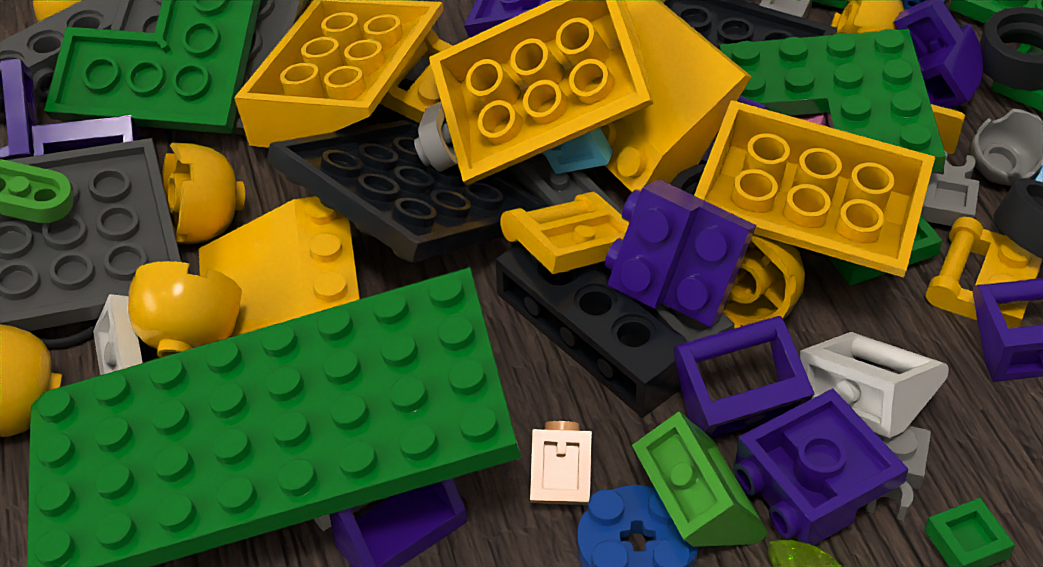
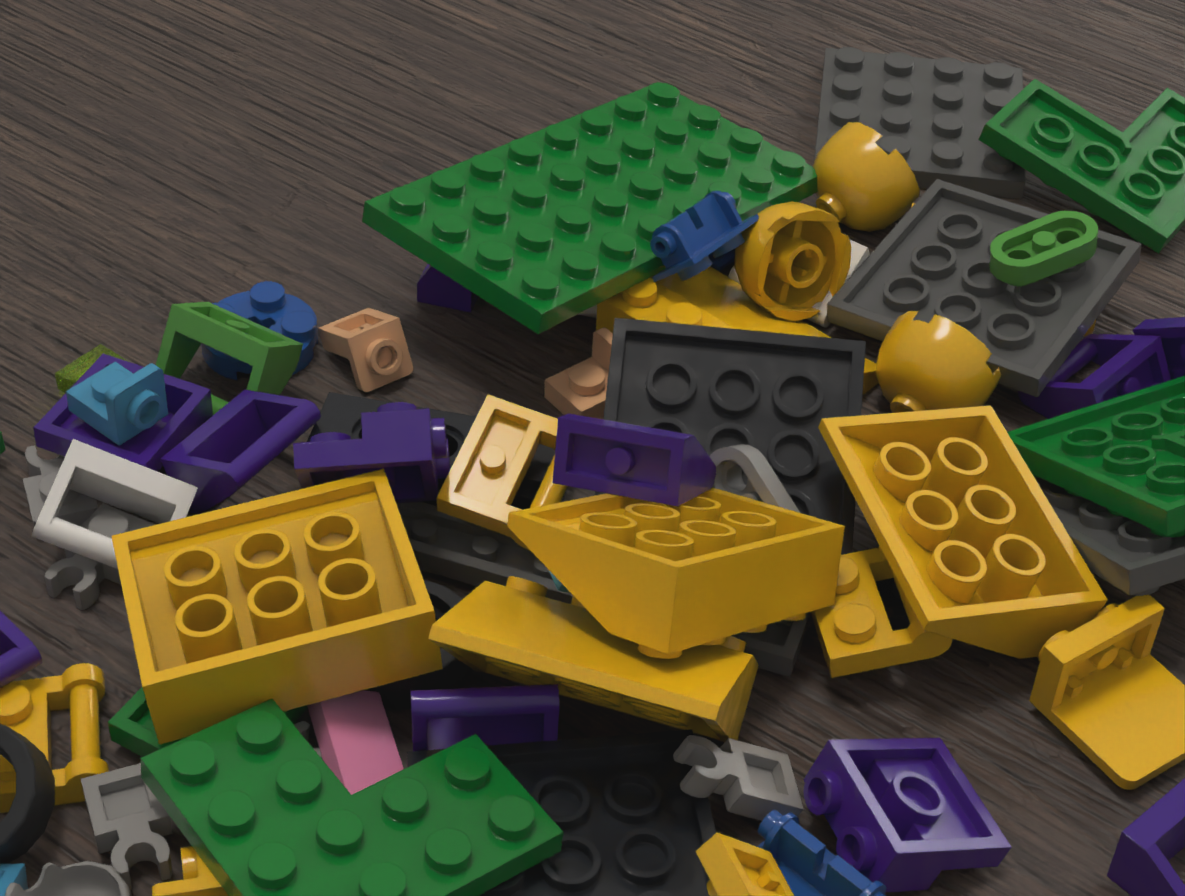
camera: 140 degrees right, 5 degrees down
(253, 306) = (702, 229): none -> blue hinge
(542, 174) = (631, 460): none -> dark purple tile
(828, 432) = (120, 401): none -> dark azure bracket

